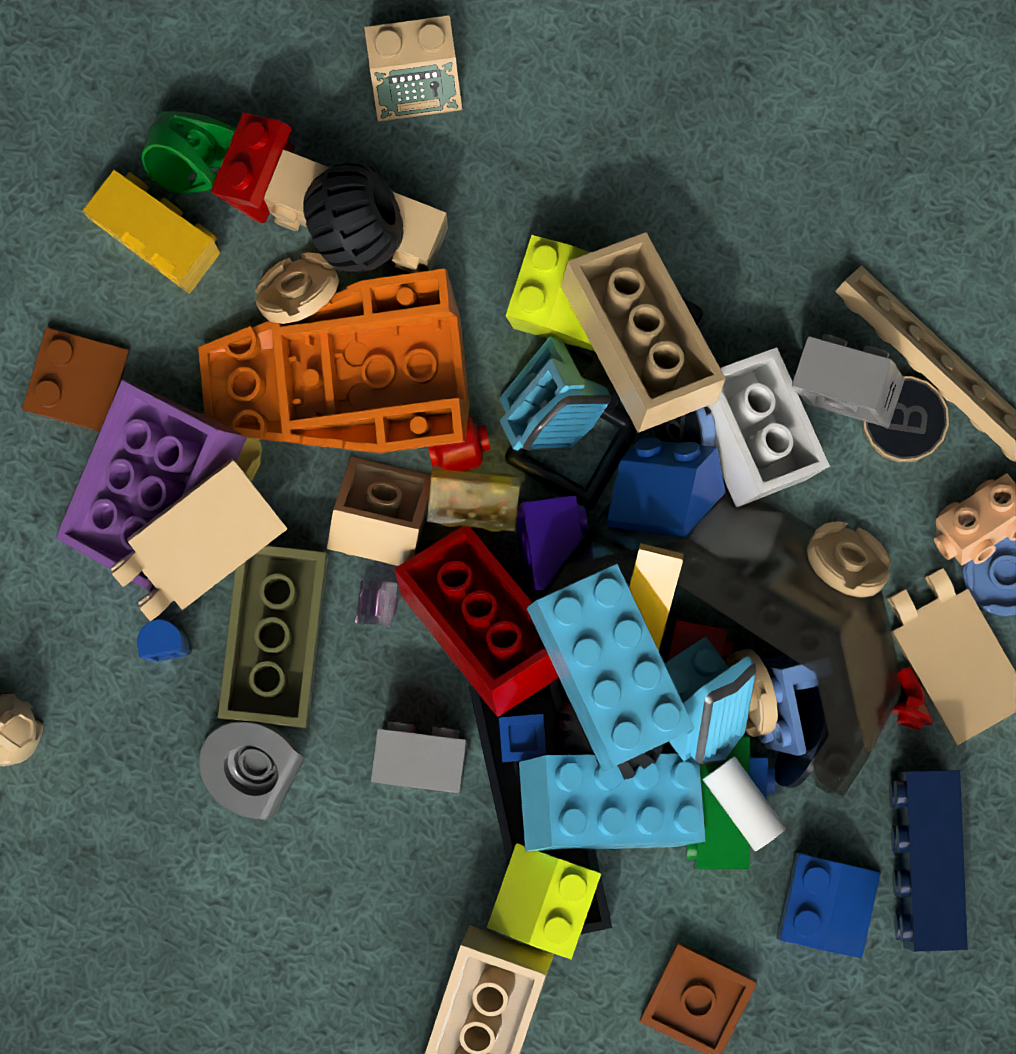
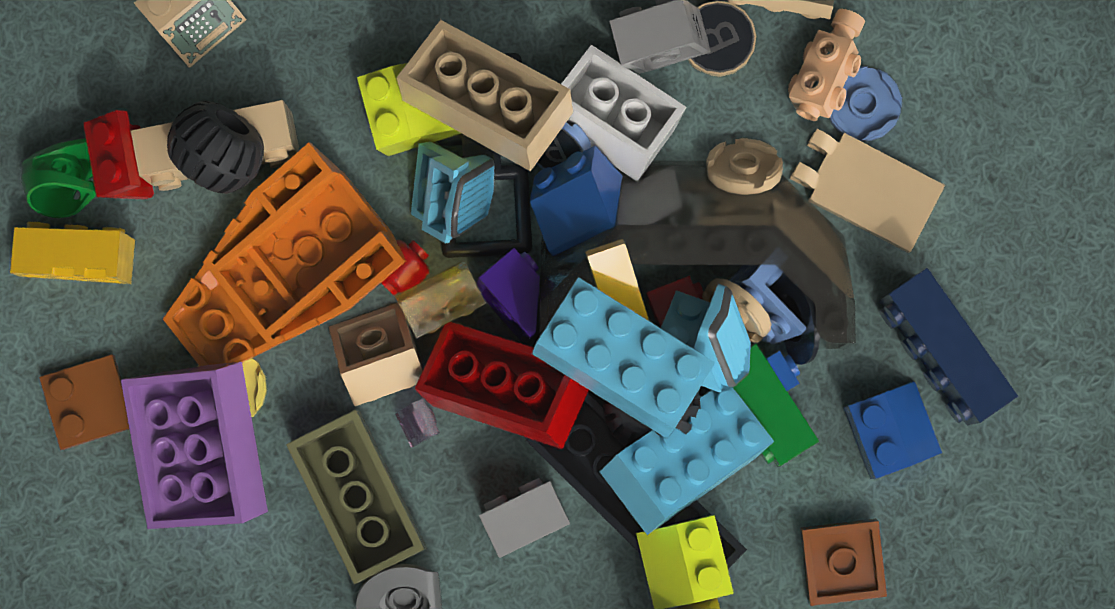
camera: 30 degrees left, 0 degrees up
(162, 641) = (276, 554): blue brick -> none
(199, 539) = (255, 461): tan tile -> none
(296, 288) = (208, 228): tan tile -> none
(522, 737) = (590, 452): blue plate -> none
(744, 803) = (785, 395): white piece -> none
(912, 711) = (862, 247): red plate -> none

